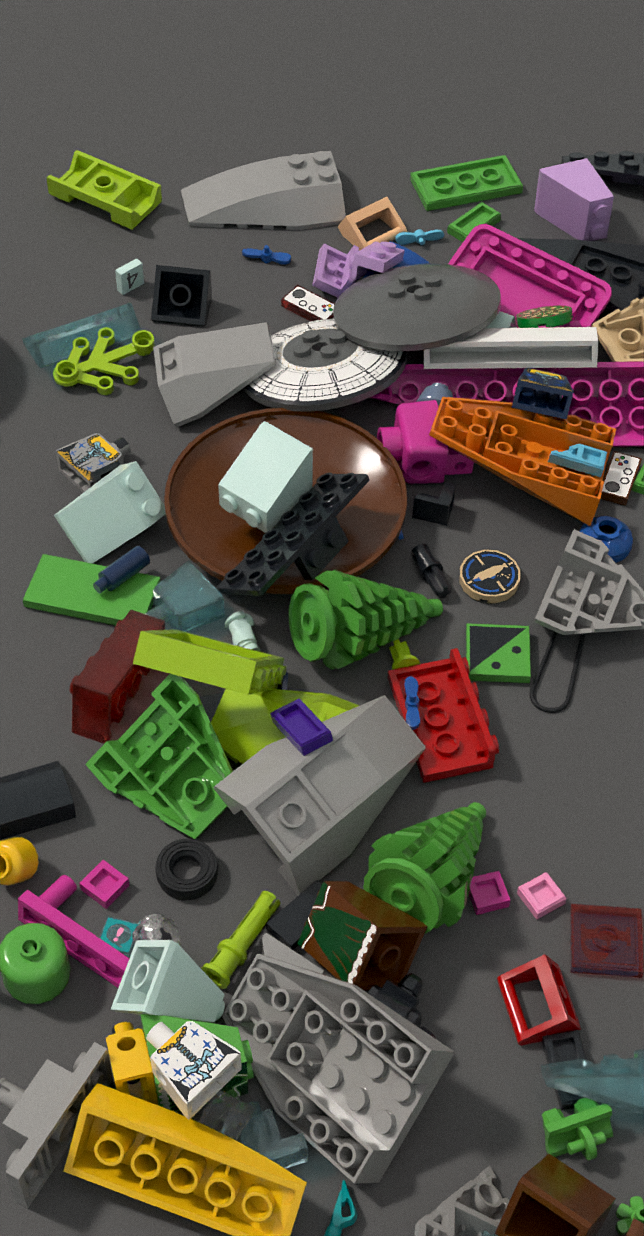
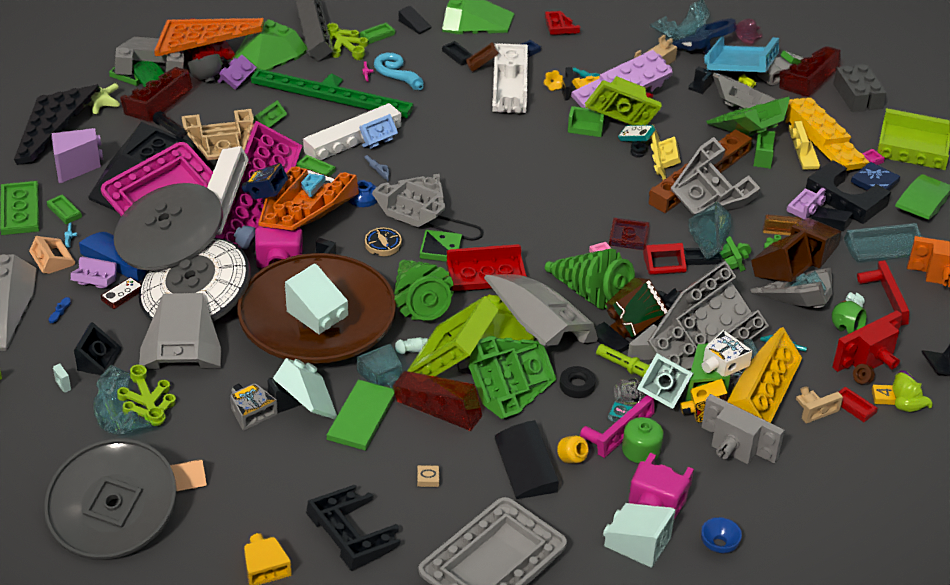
camera: 85 degrees left, 10 degrees down
(104, 884) = (584, 417): dark pink tile -> none
(122, 569) = (355, 391): dark blue cylinder -> none
(301, 727) = (513, 300): dark purple tile -> none
(304, 535) = (367, 298): black bracket -> none
(375, 257) = (104, 244): lavender bracket -> none
(412, 702) = (478, 275): blue piece -> none
(431, 570) = (380, 262): black axle -> none
(549, 315) = (198, 172): green tile -> none

